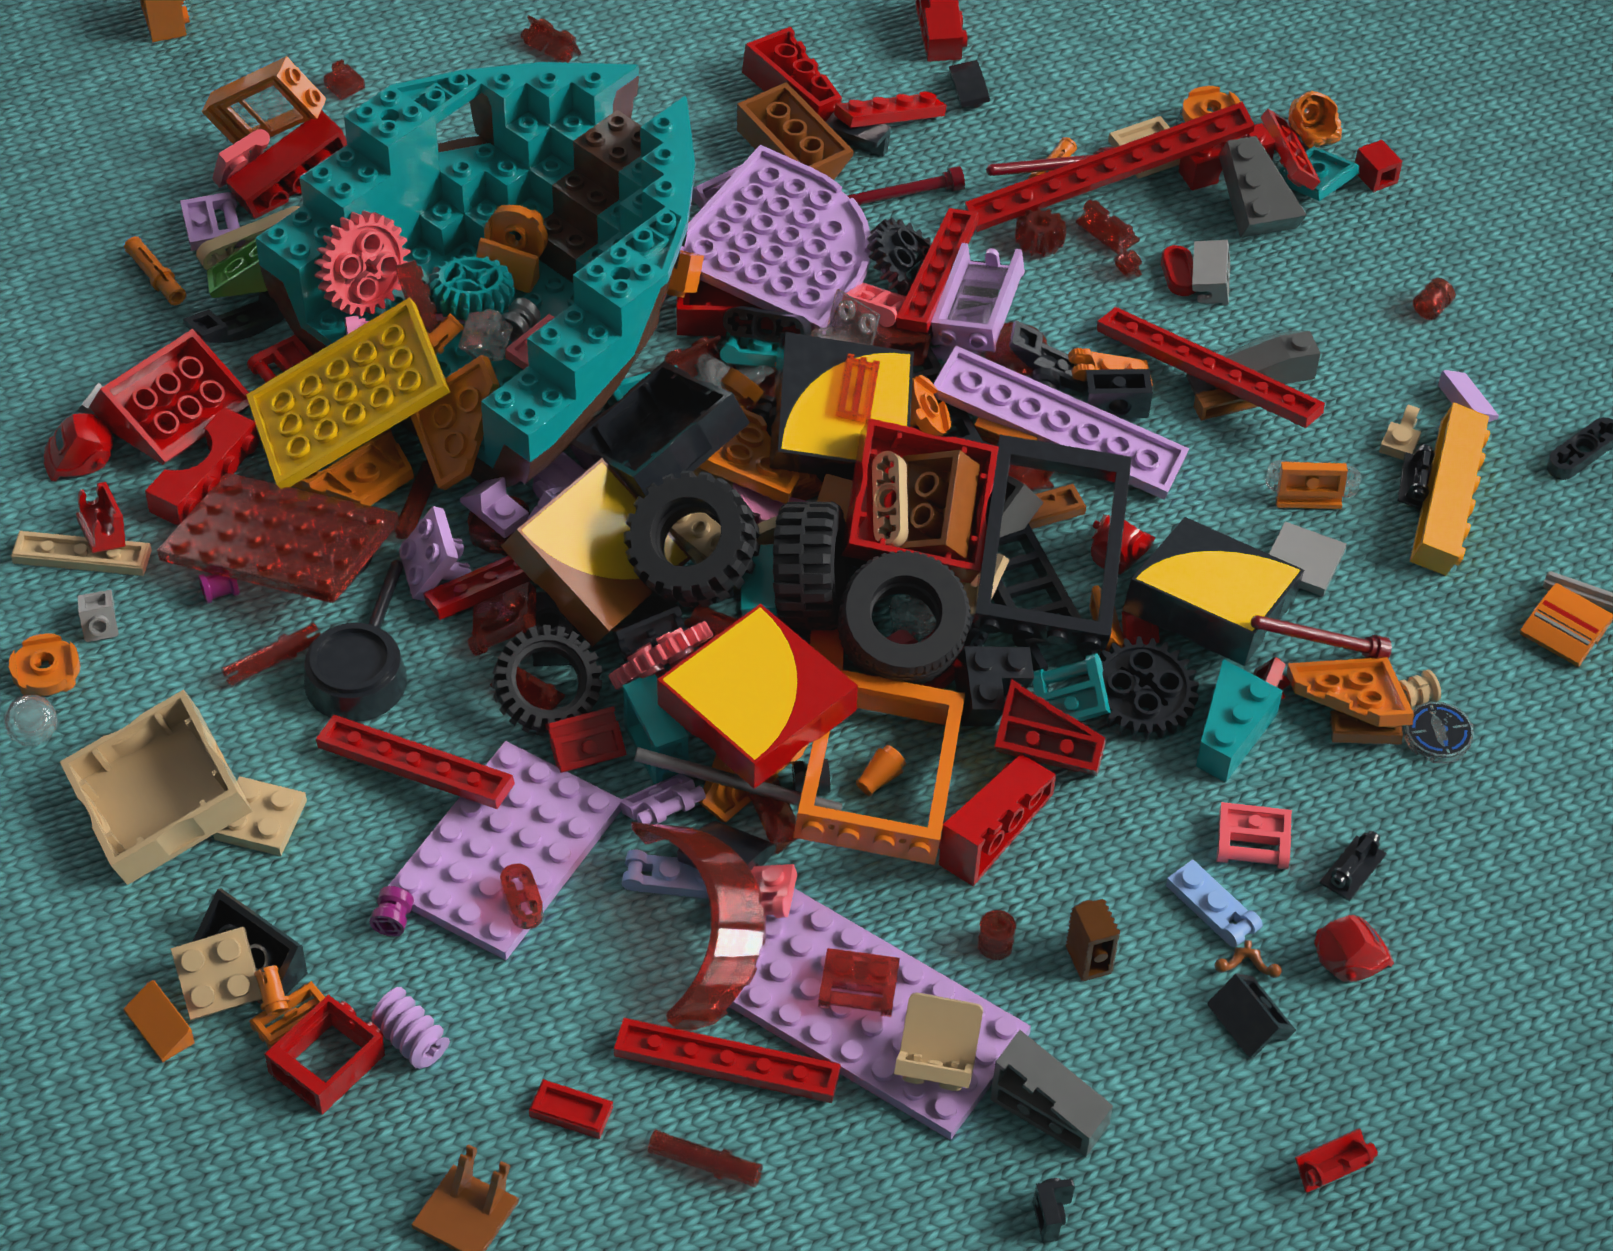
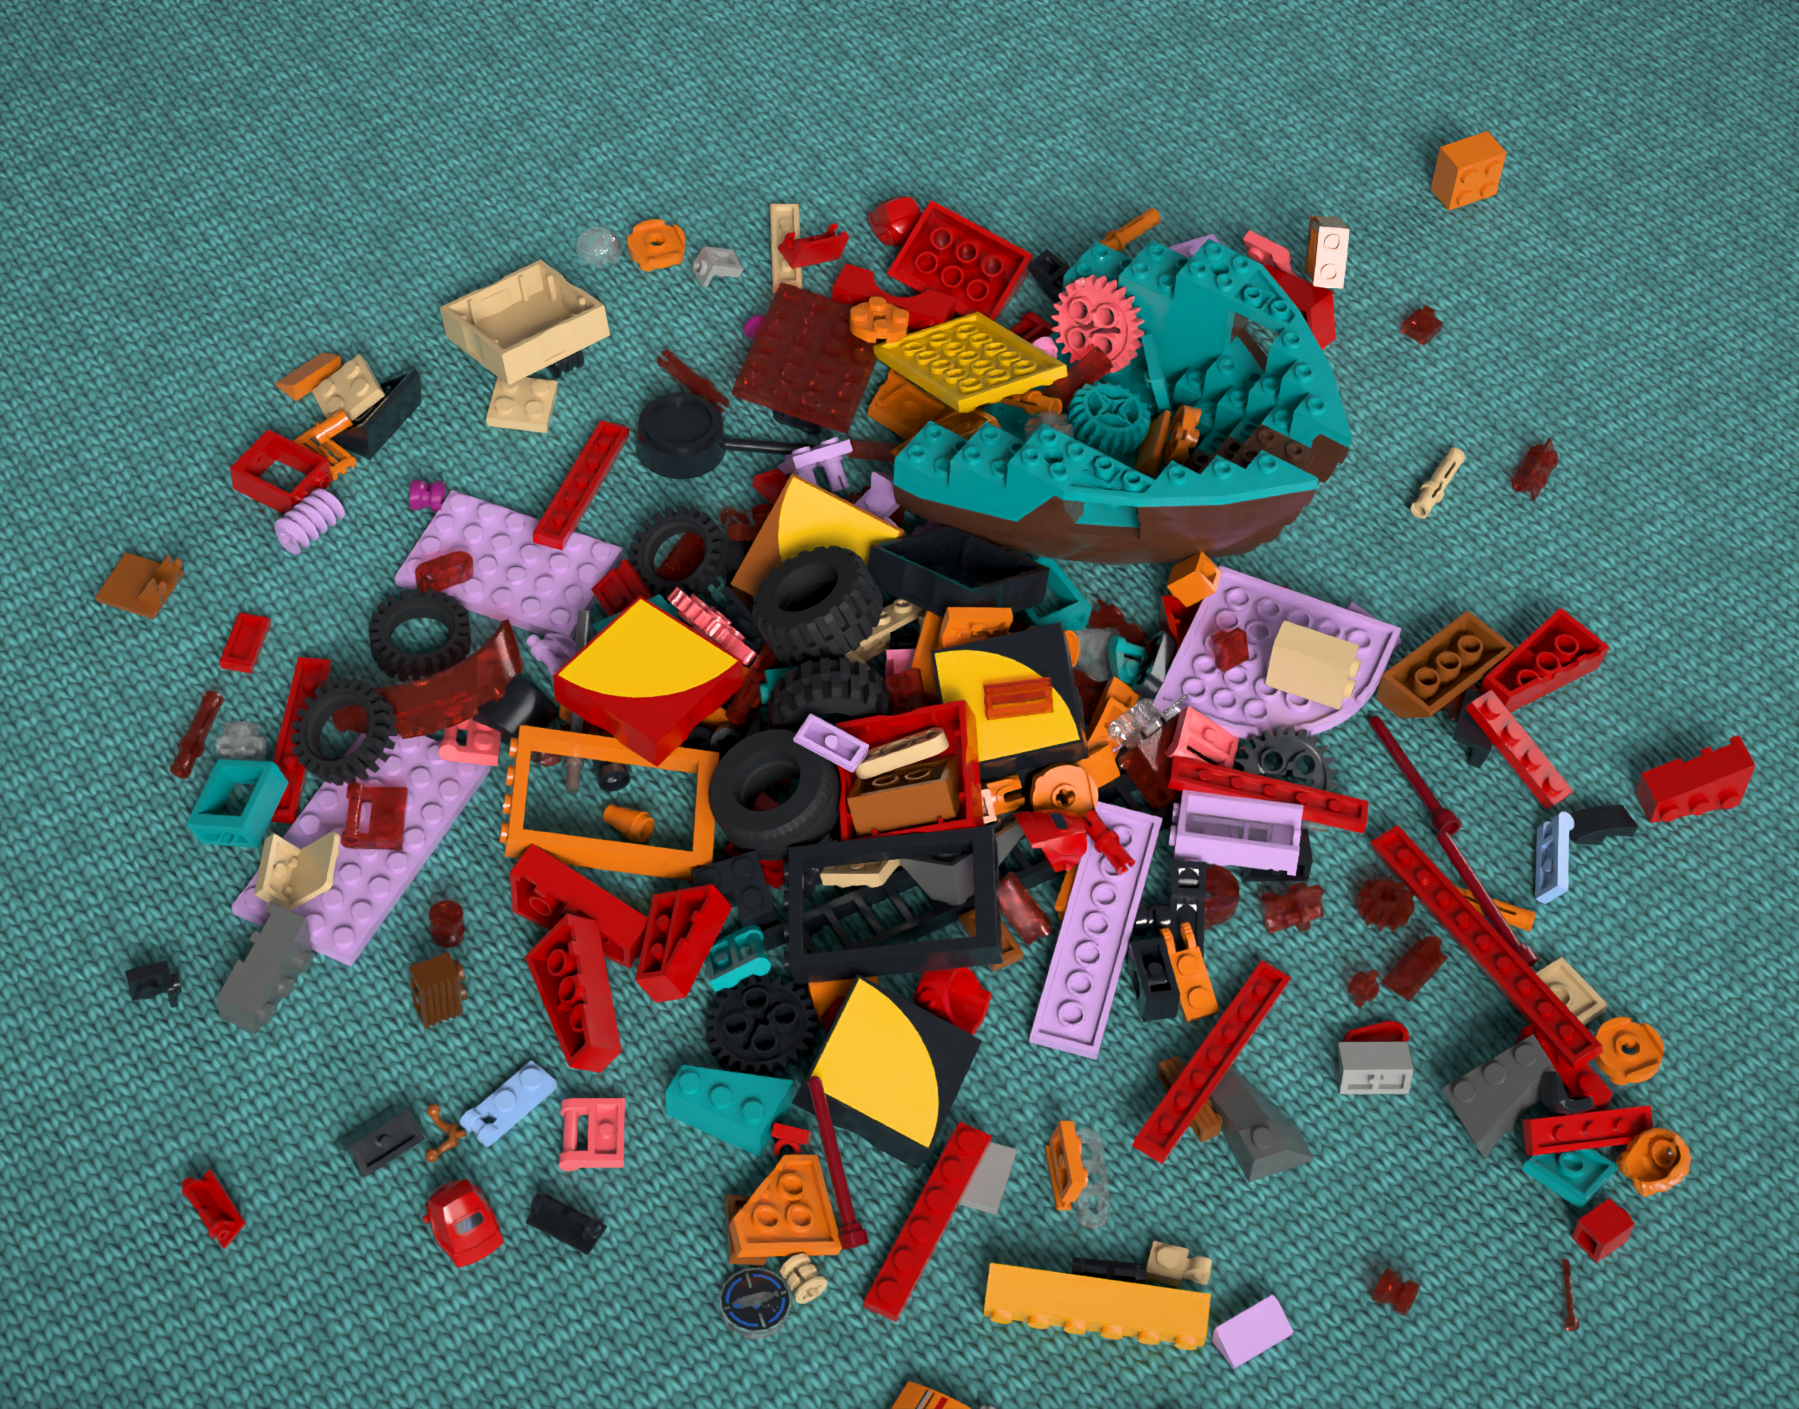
camera: 80 degrees right, 0 degrees up
(233, 469) = (878, 320): none -> orange plate
(433, 238) = (1154, 375): none -> teal plate
(609, 968) = (414, 607): none -> black tyre
(737, 1109) = (241, 741): none -> clear brick
(759, 421) = (973, 624): none -> orange slope
(776, 257) = (1230, 648): none -> clear red tile
(792, 959) = (320, 710): none -> black tyre
(813, 487) = (906, 691): none -> clear red hips
(819, 196) = (1313, 665): none -> tan brick
(858, 1127) = (249, 827): none -> teal window
(886, 540) = (831, 743): none -> lavender slope
(977, 417) = (1057, 833): none -> red helmet
(983, 386) = (1107, 842): none -> red pin
(1004, 117) = (1552, 857): none -> light blue plate
(1052, 287) = (1292, 909): none -> clear red hips
(1098, 824) = (576, 992): none -> red wedge
(1278, 144) = (1556, 1098): none -> black hair
(1363, 593) = (927, 1222): none -> red plate
(1456, 206) = (1571, 1322): none -> clear red piece

